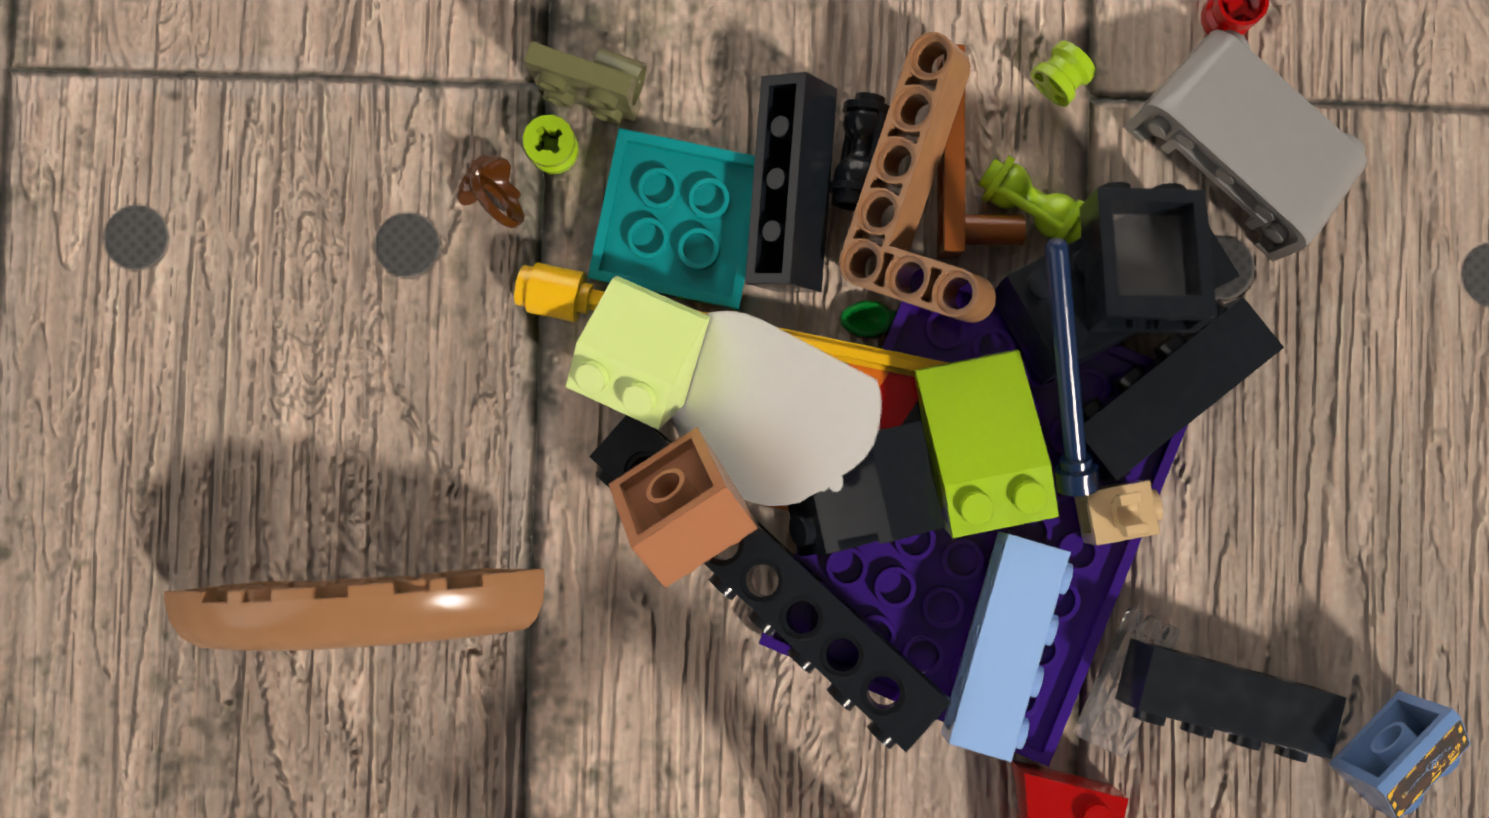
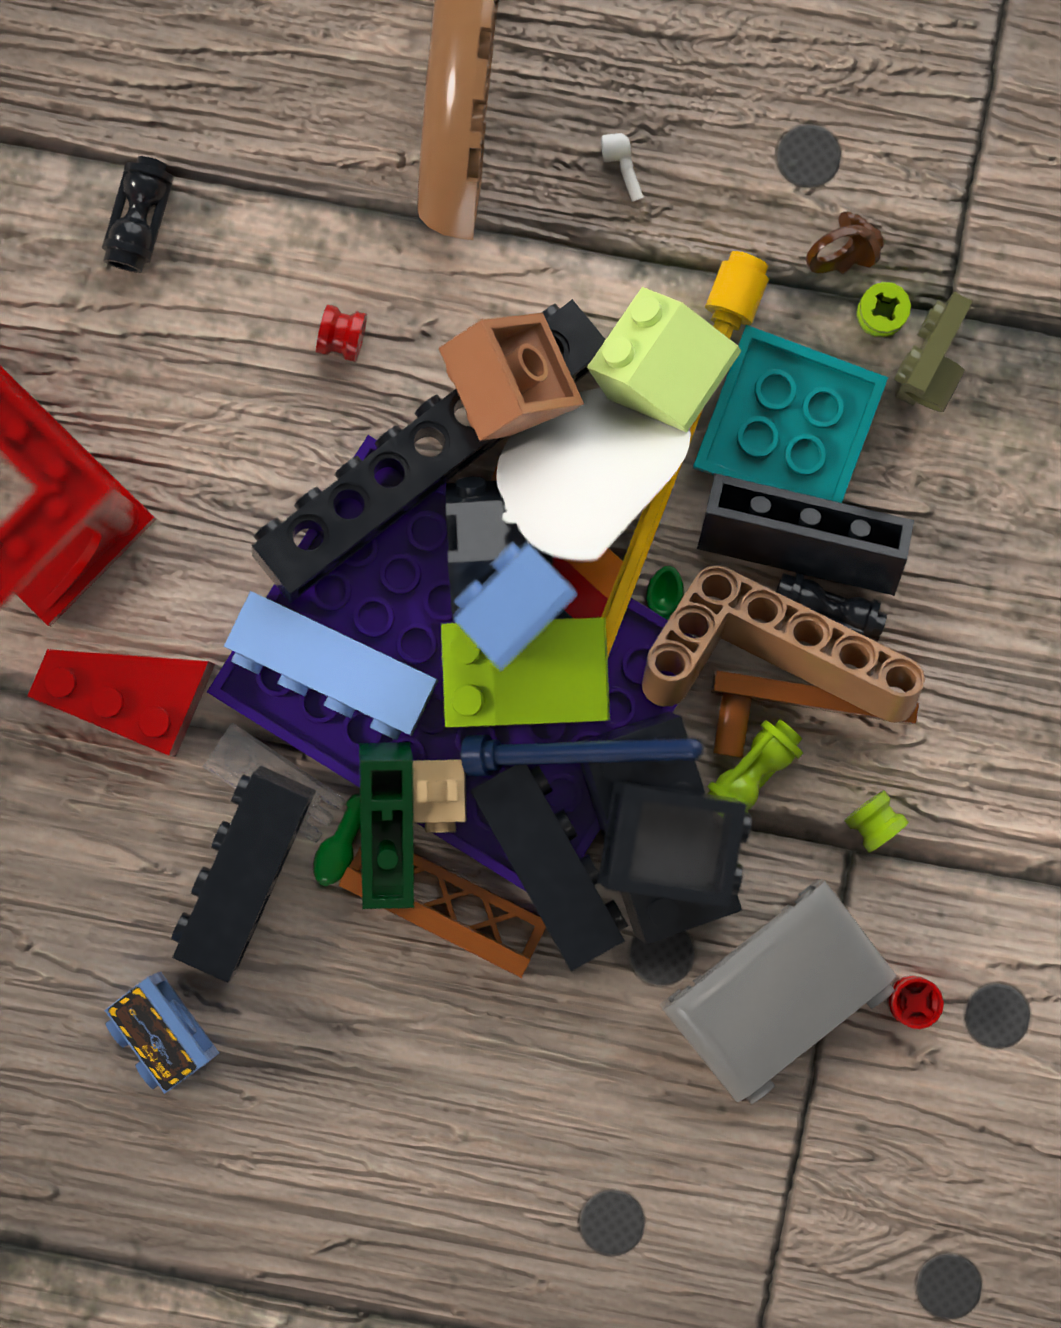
camera: 105 degrees right, 0 degrees up
(427, 436) = (618, 148): none -> white hand
(658, 687) = (341, 333): none -> red wheel
(936, 463) = (512, 602): none -> medium blue slope
(1161, 562) = (386, 825): none -> dark green slope
(1180, 605) = (337, 850): none -> green piece
(1237, 497) = (455, 931): none -> dark orange fence

